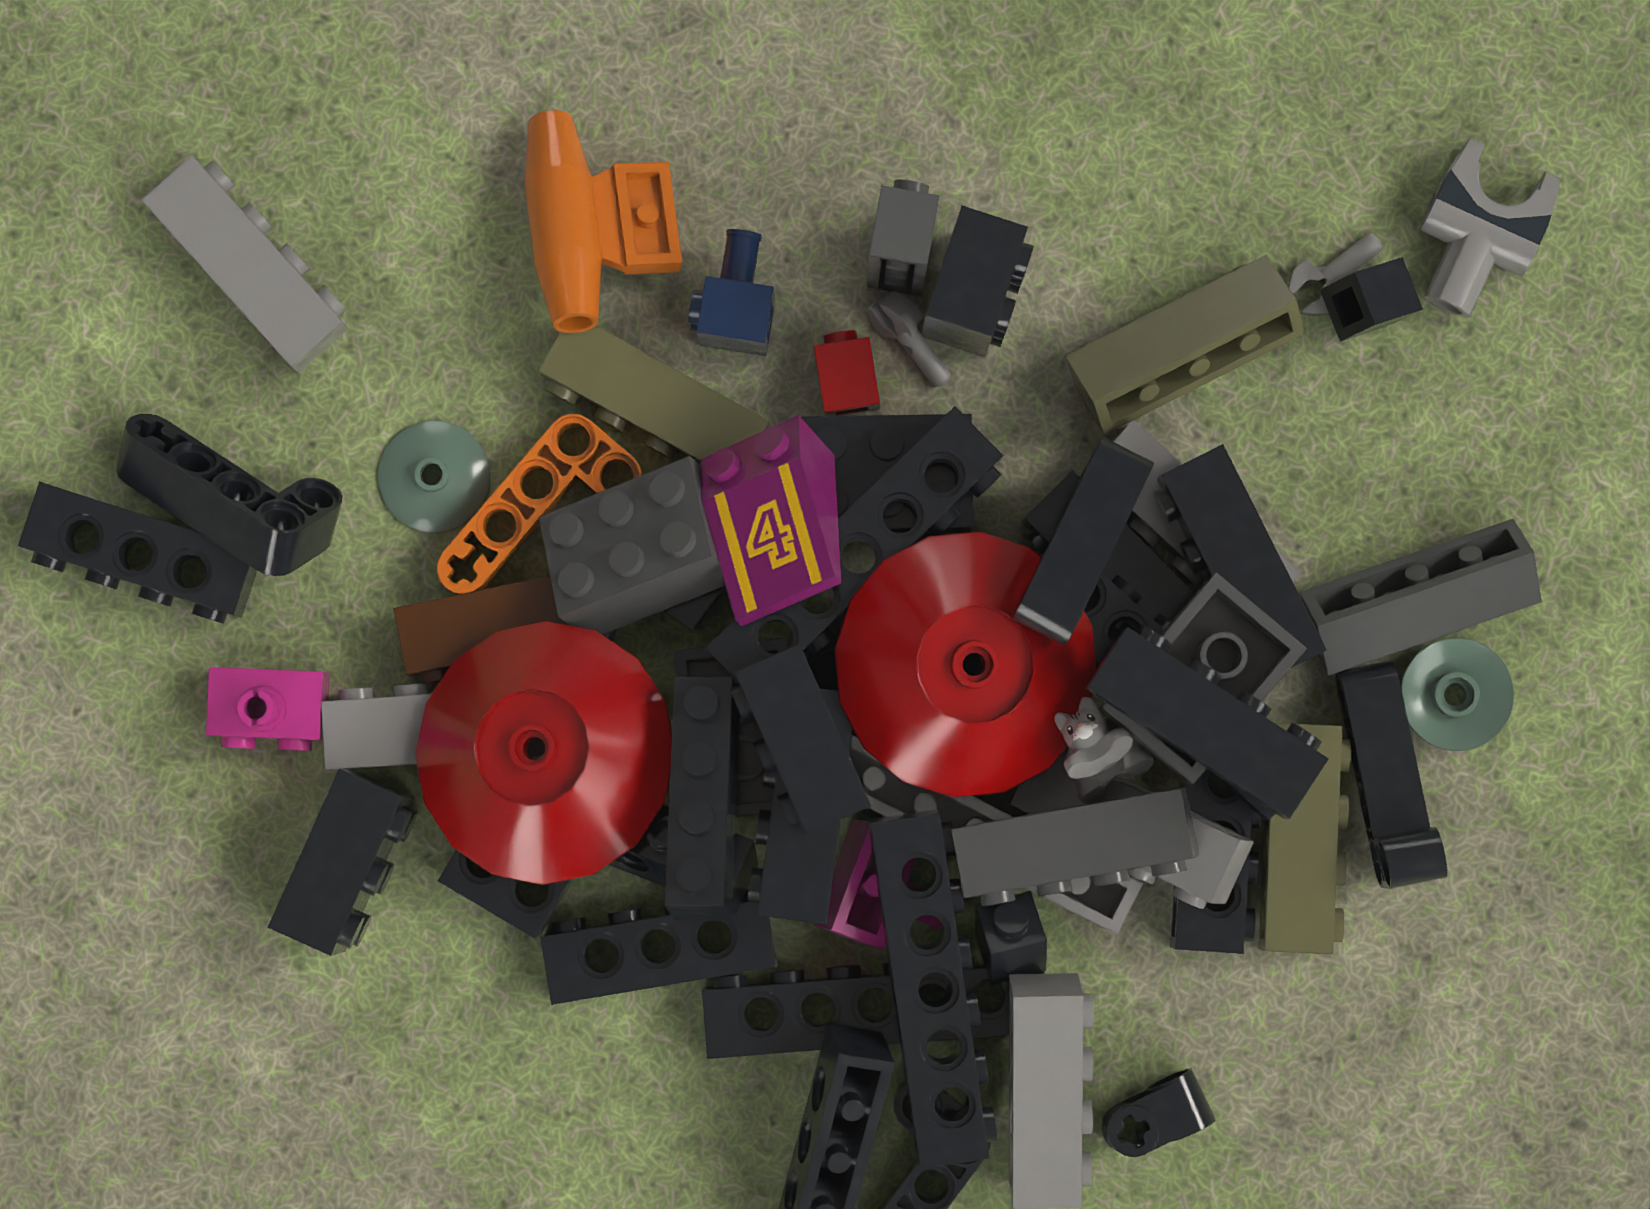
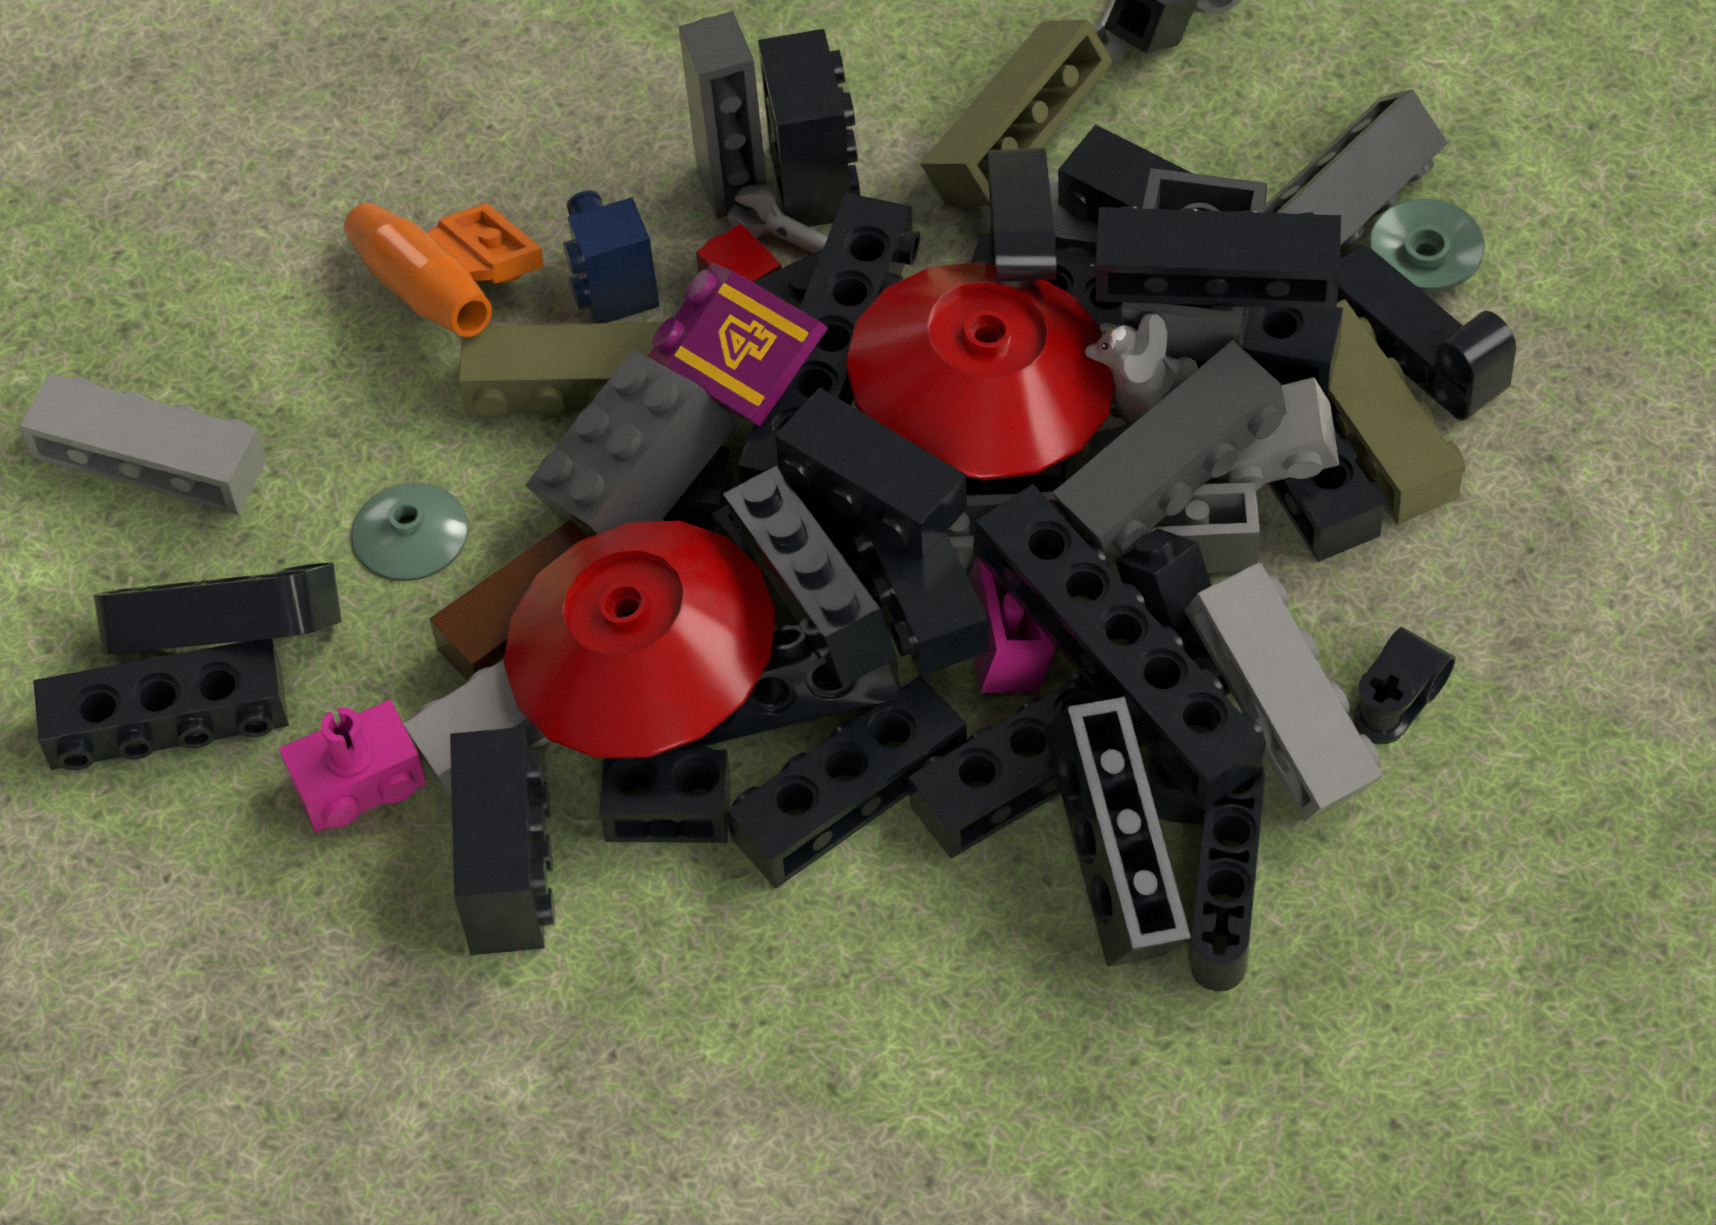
camera: 25 degrees left, 30 degrees down
(512, 499) = (504, 501): orange beam -> none

